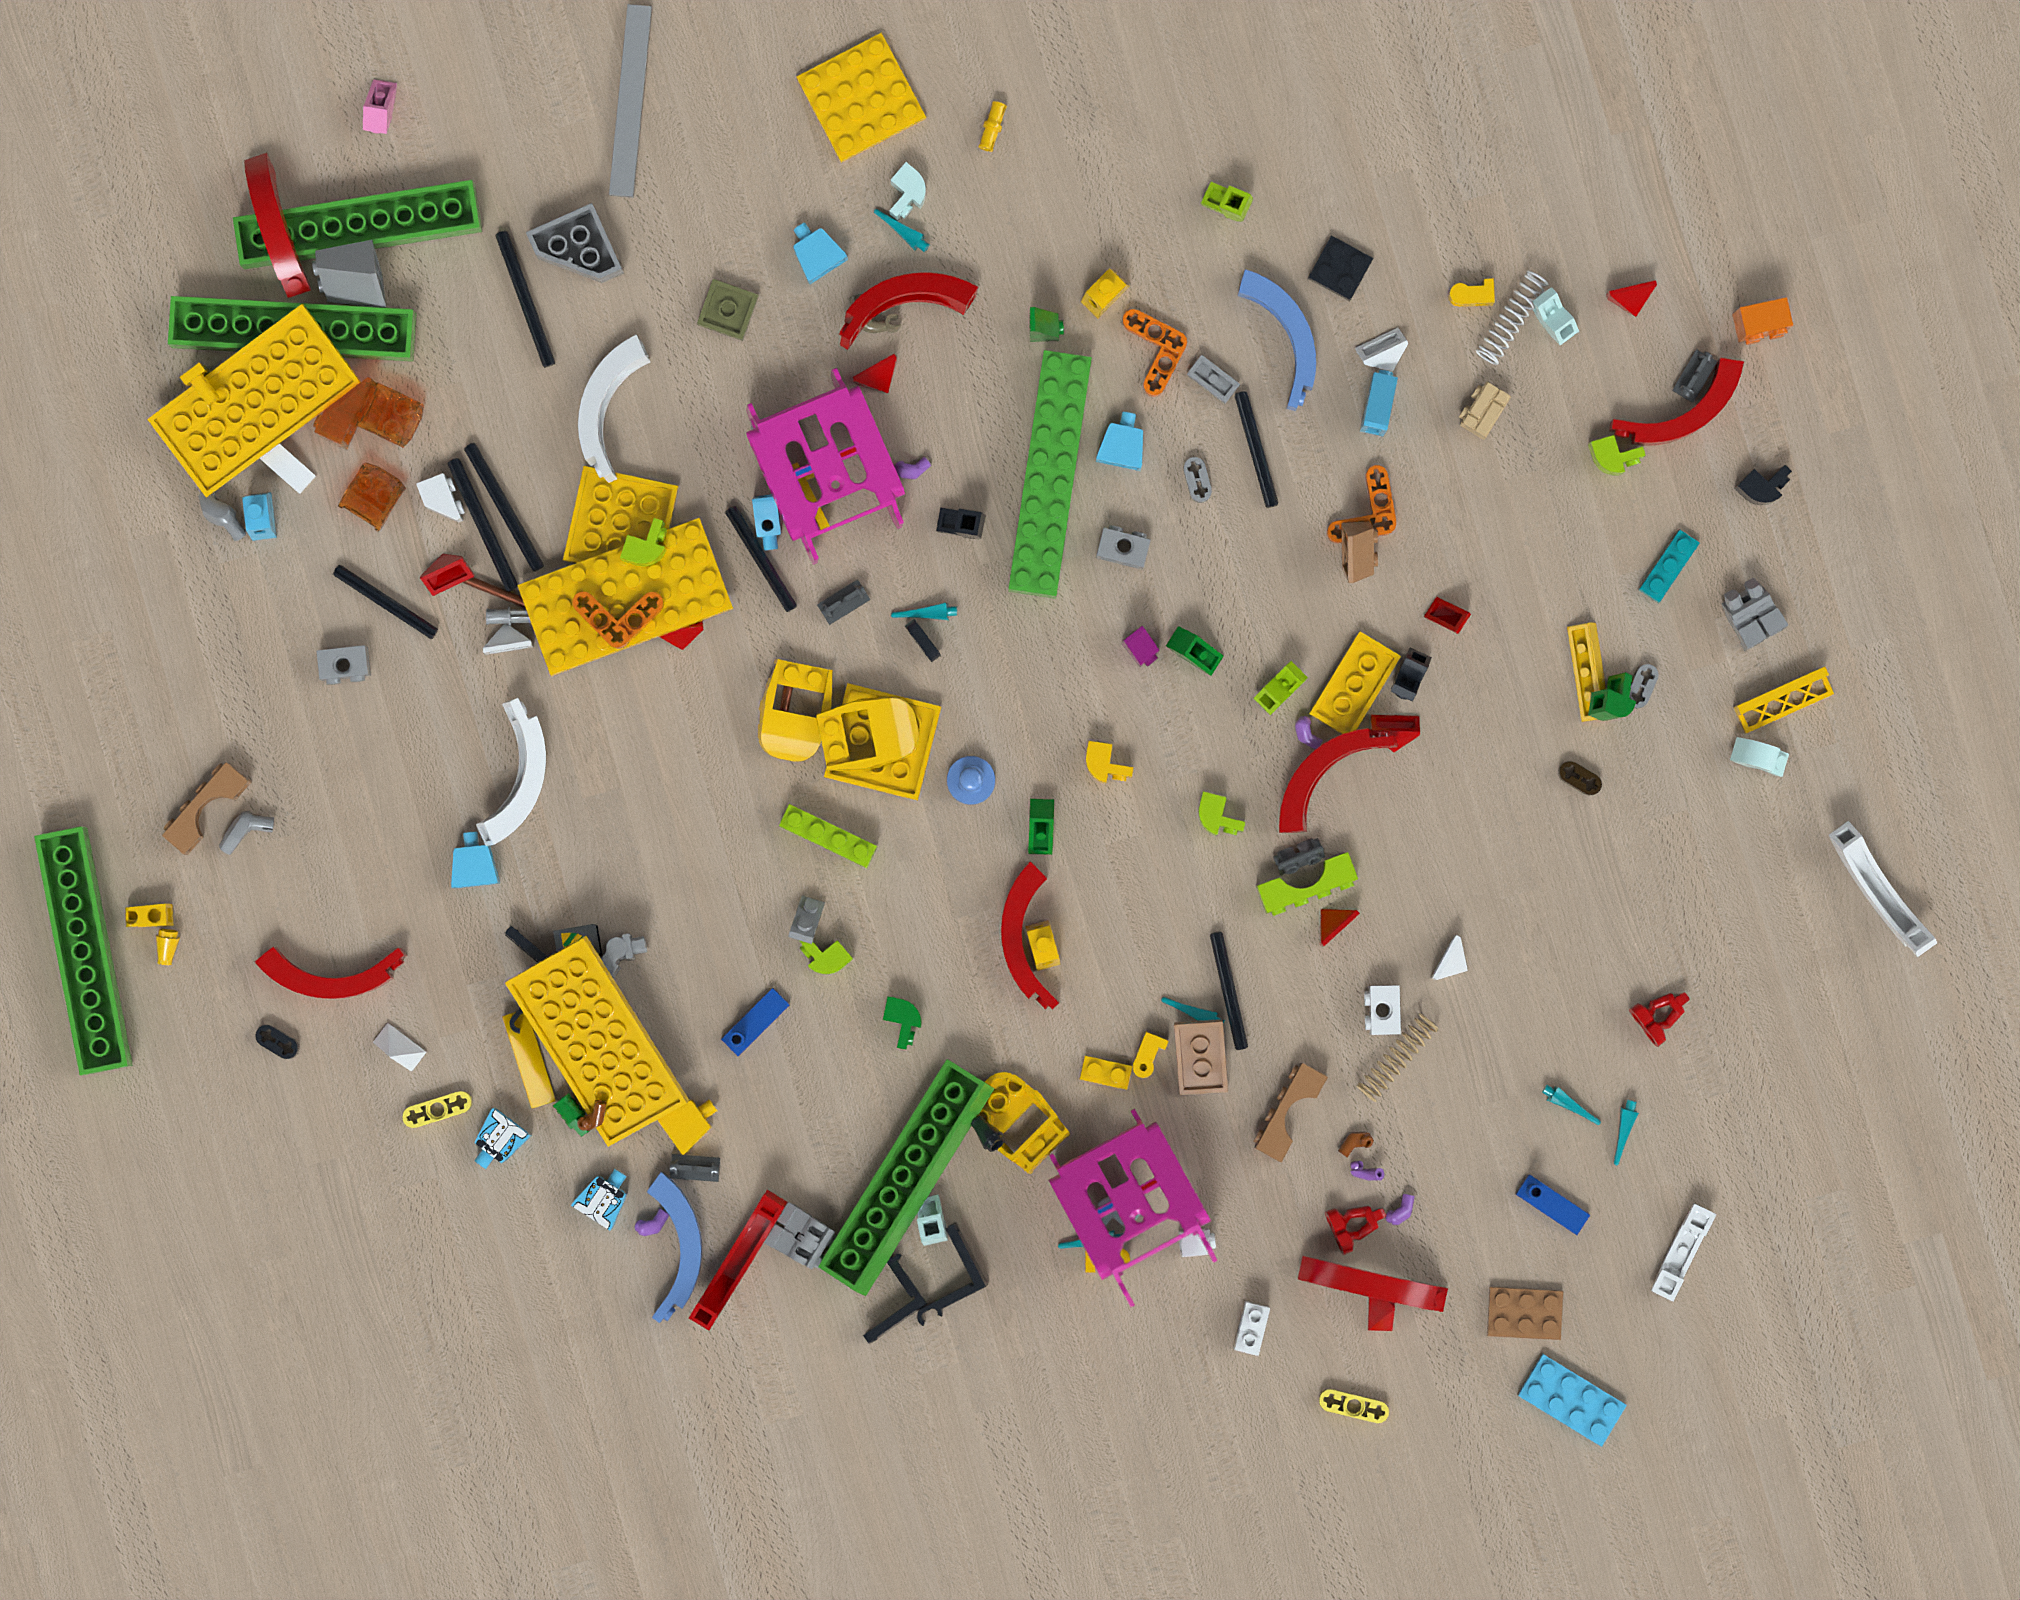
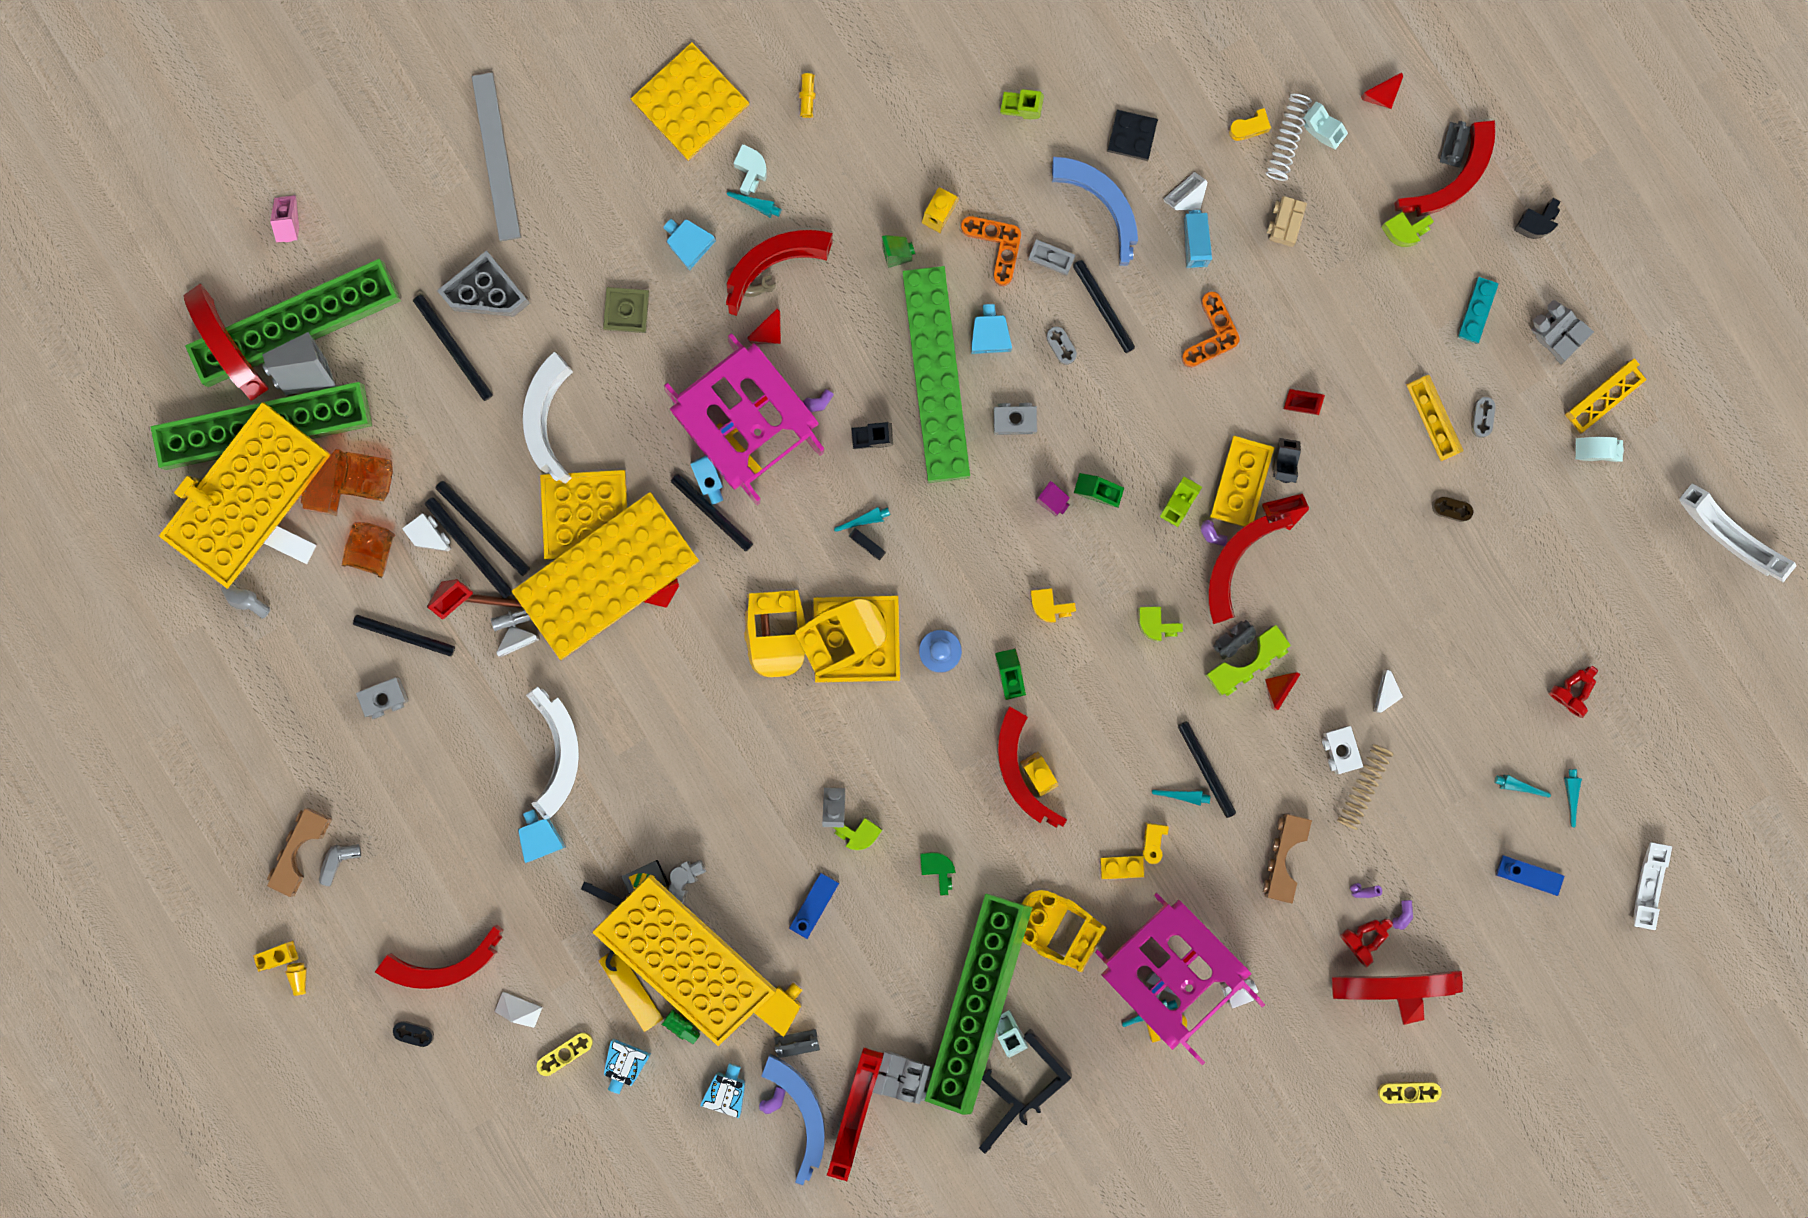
camera: 10 degrees left, 0 degrees up
(83, 950) = (226, 1002): bright green brick -> none
(259, 516) = (276, 592): medium azure torso -> none
(594, 1118) = (699, 1026): dark orange arm -> none
(622, 624) = (609, 600): orange beam -> none
(646, 552) = (611, 534): lime brick -> none
(828, 836) = (832, 731): lime arch -> none
(843, 602) = (791, 530): dark grey hinge -> none
(988, 1135) = (1039, 949): black cone -> none
(1201, 1057) = (1199, 832): medium nougat plate -> none
(1251, 1328) = (1305, 1051): white brick -> none
(1356, 1140) = (1349, 866): dark orange arm -> none
(1358, 550) = (1213, 367): medium nougat slope -> none
(1525, 1313) = (1532, 974): medium nougat plate -> none
(1572, 1400) = (1592, 1036): medium azure plate -> none
(1613, 701) = (1465, 435): green brick -> none
(1763, 320) = (1501, 81): orange brick -> none

